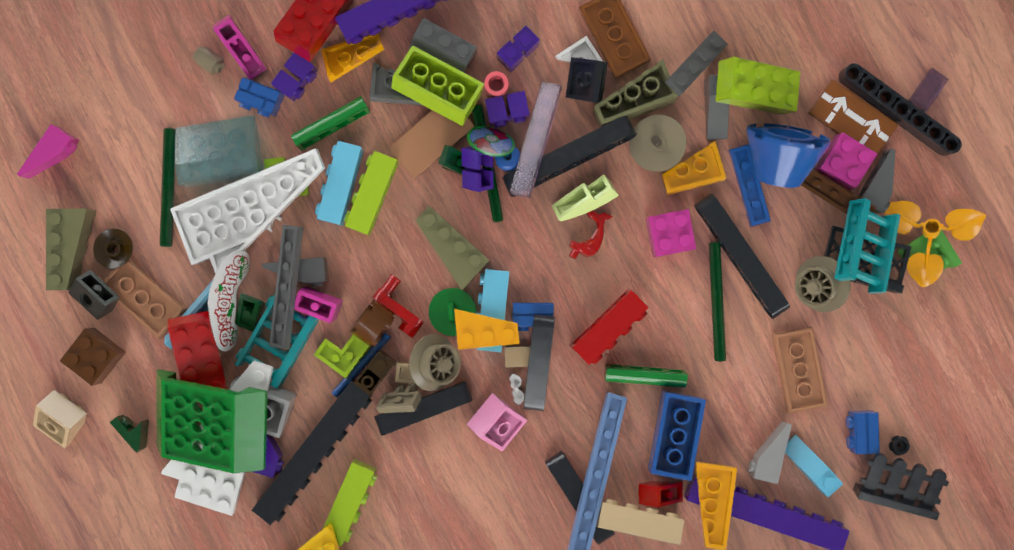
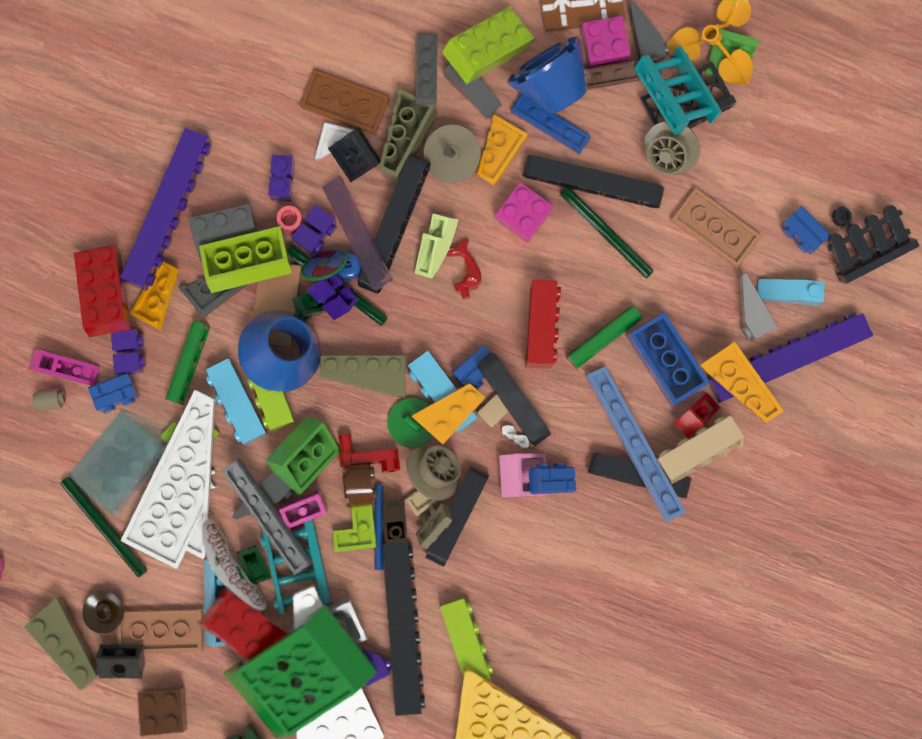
camera: 45 degrees left, 5 degrees down
(352, 265) = (303, 454): none -> bright green slope
(378, 174) = (264, 366): none -> blue cone
(513, 445) = (552, 479): none -> blue brick

